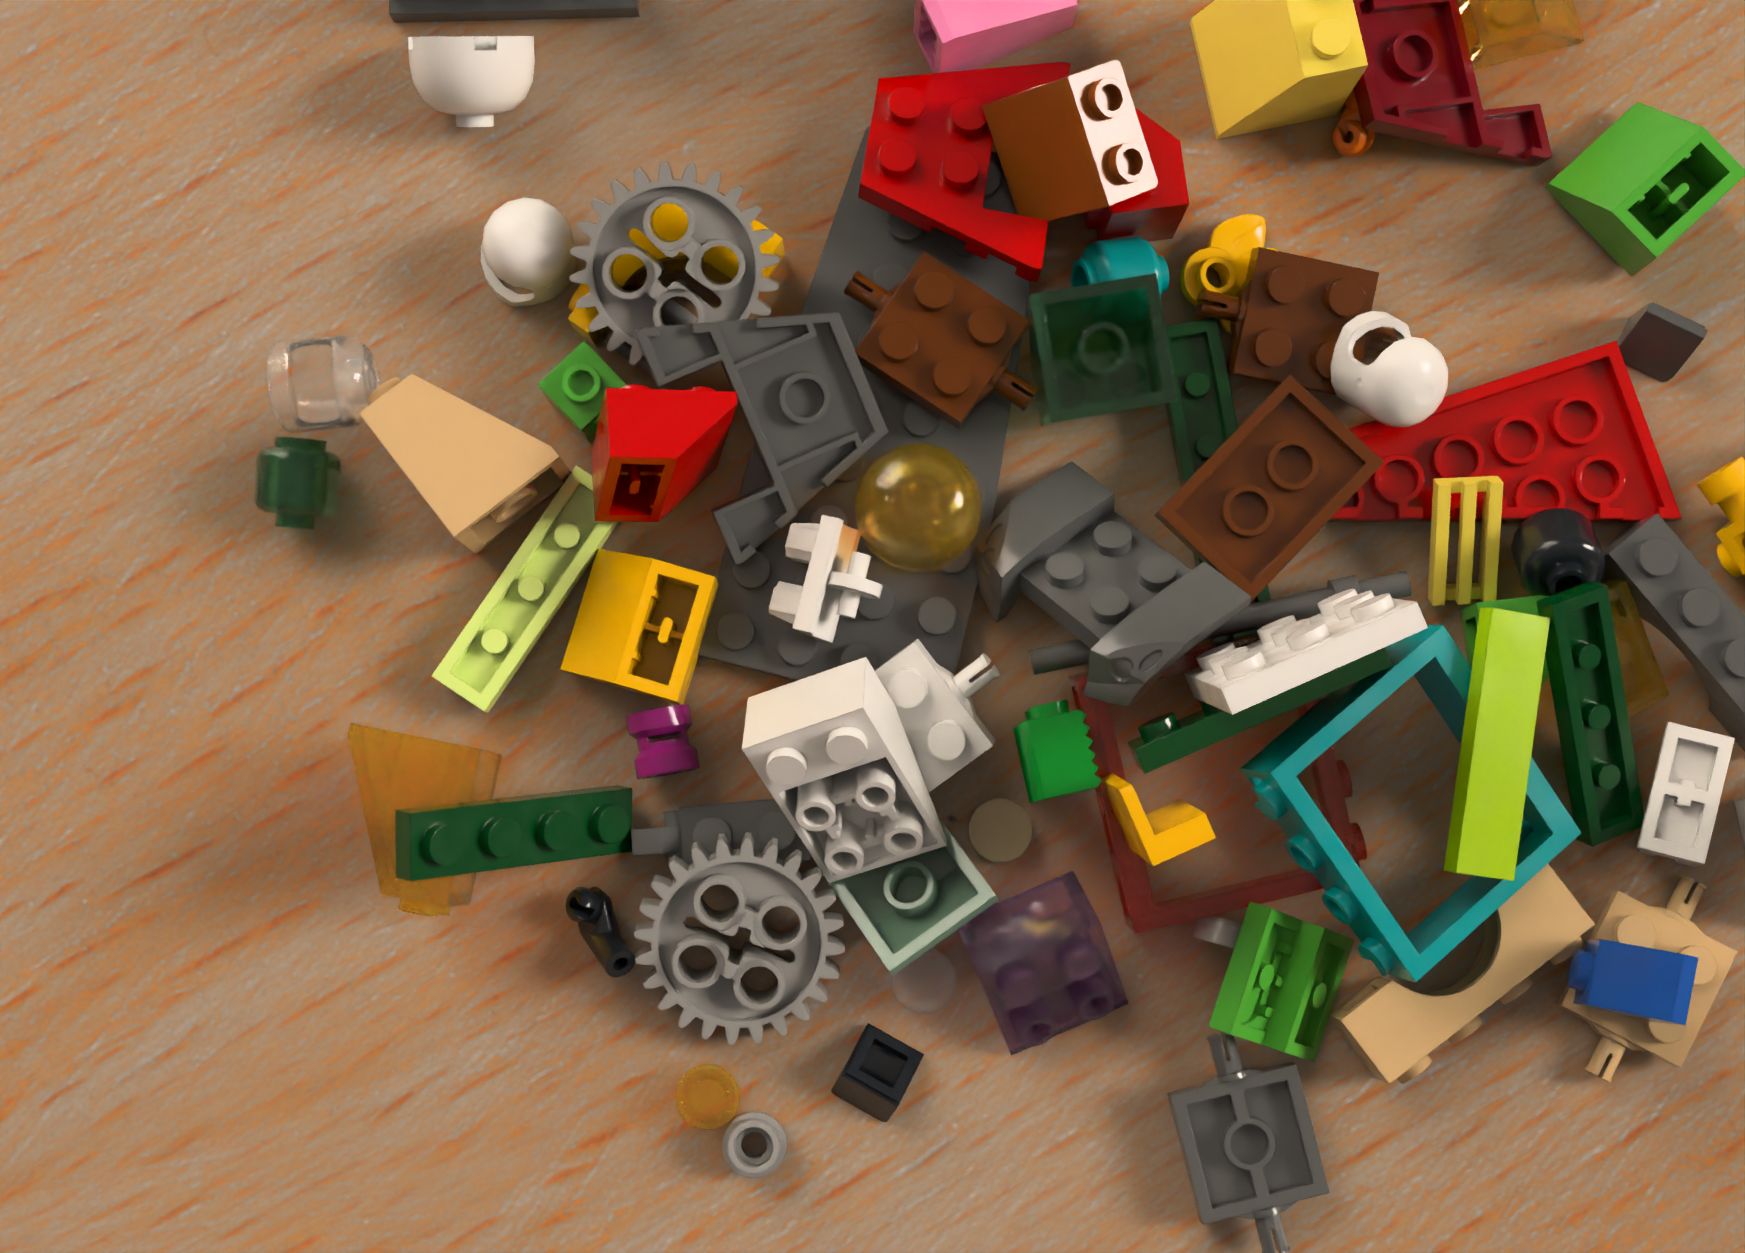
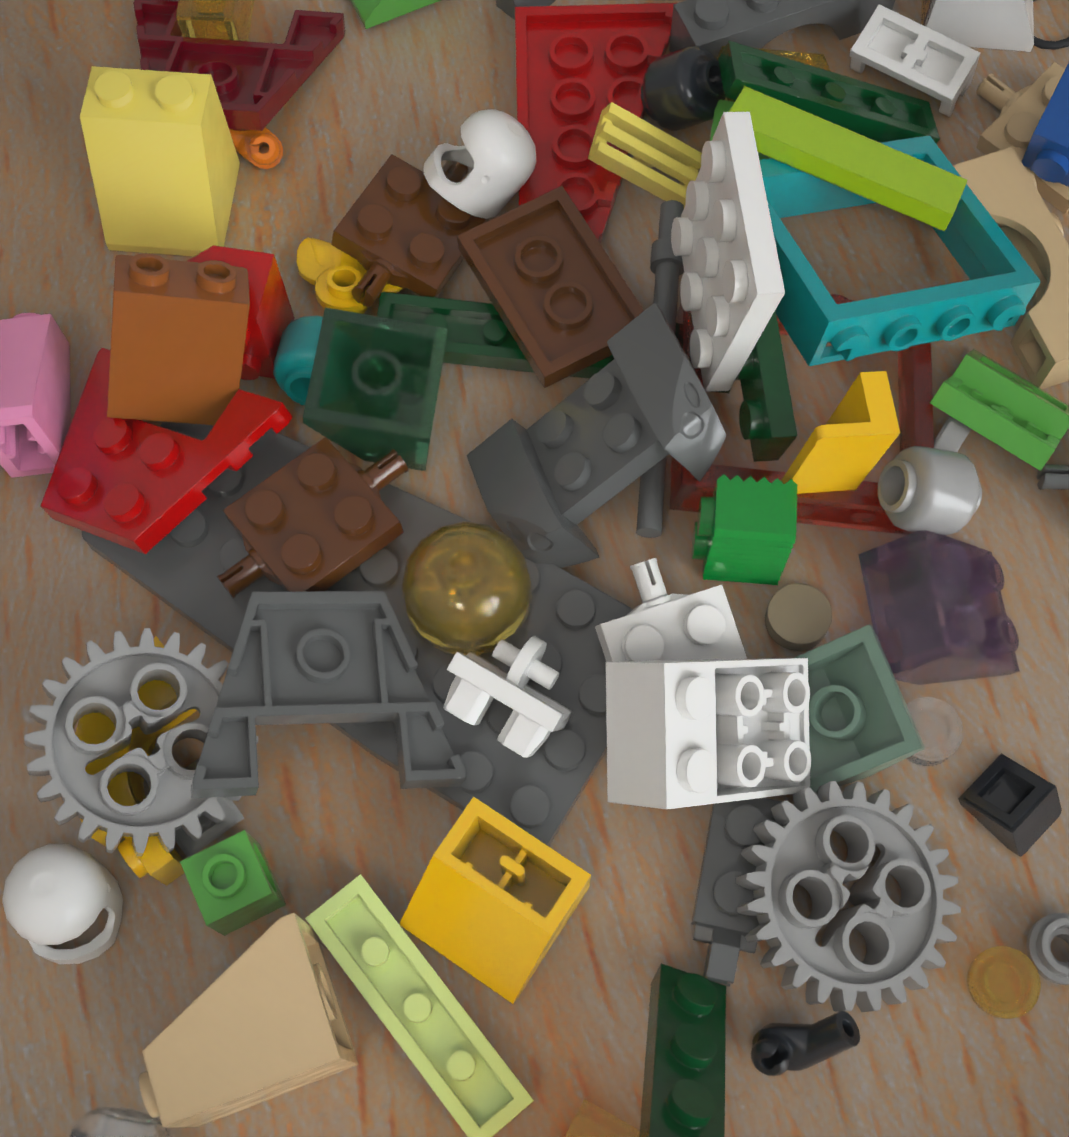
camera: 70 degrees left, 15 degrees down
(655, 448) = (317, 824): red slope -> none
(663, 756) = (638, 915): magenta wheel -> none
(1142, 919) = (929, 490): none -> light grey head

